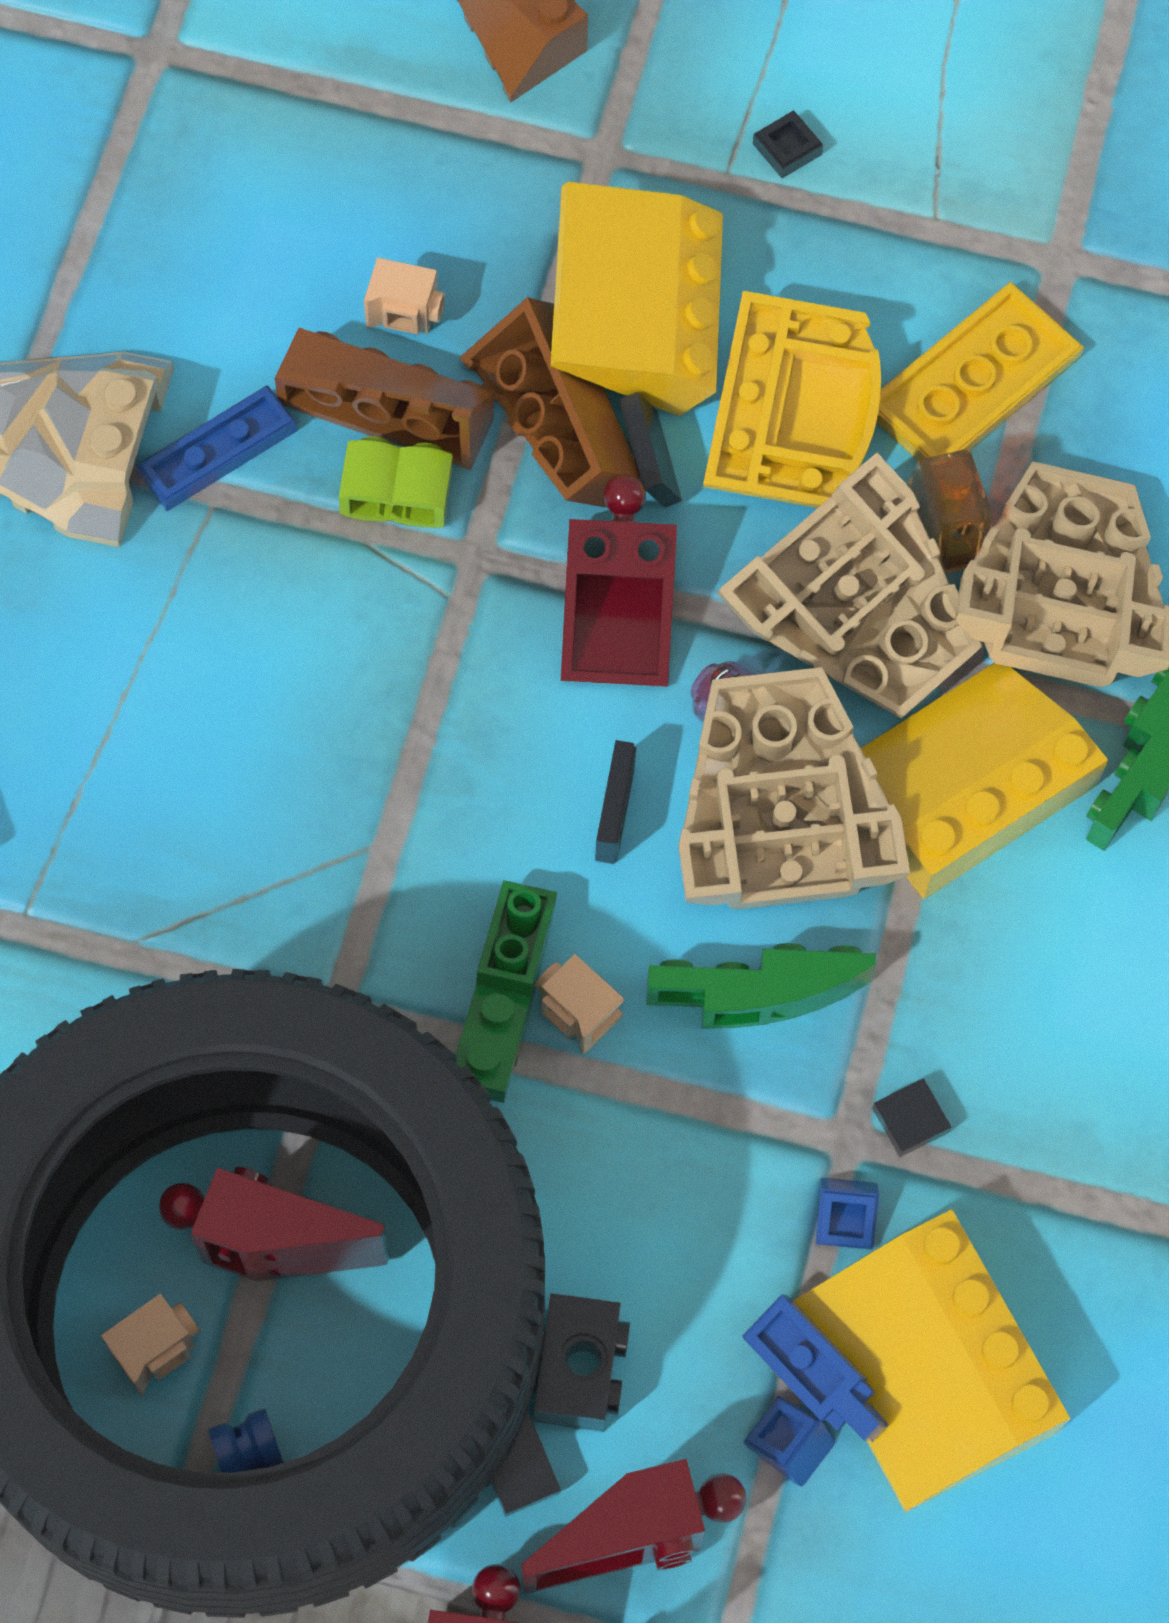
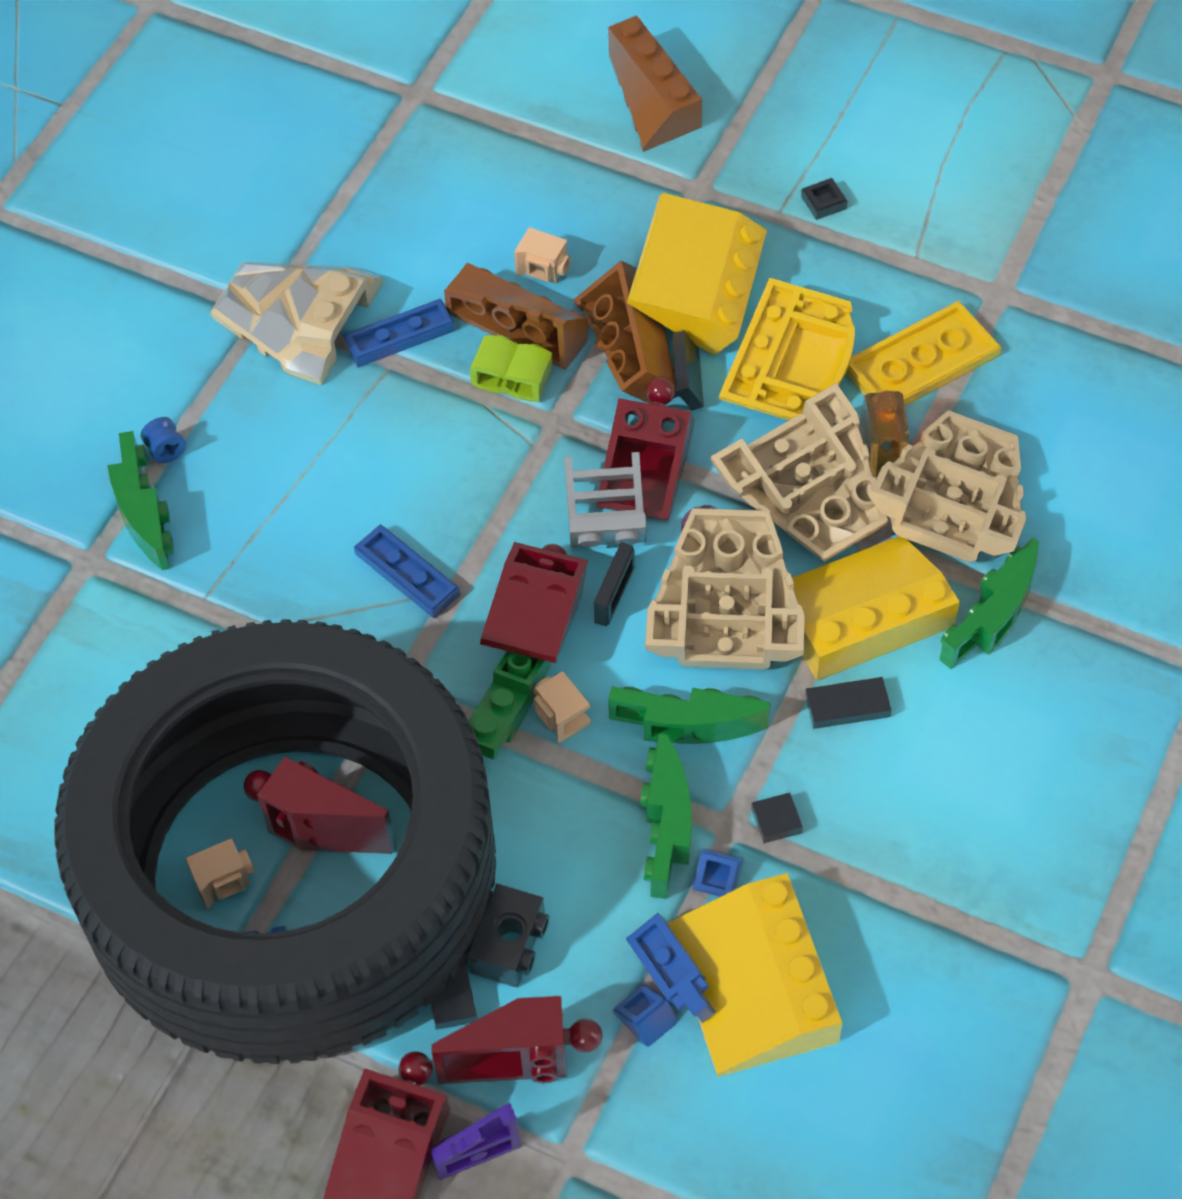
camera: 15 degrees right, 10 degrees down
(311, 824) = (407, 571): none -> blue tile
(513, 853) = (535, 601): none -> dark red slope
(573, 717) = (605, 527): none -> light grey plate
(763, 1124) = (669, 812): none -> green slope
(975, 927) = (848, 702): none -> black tile

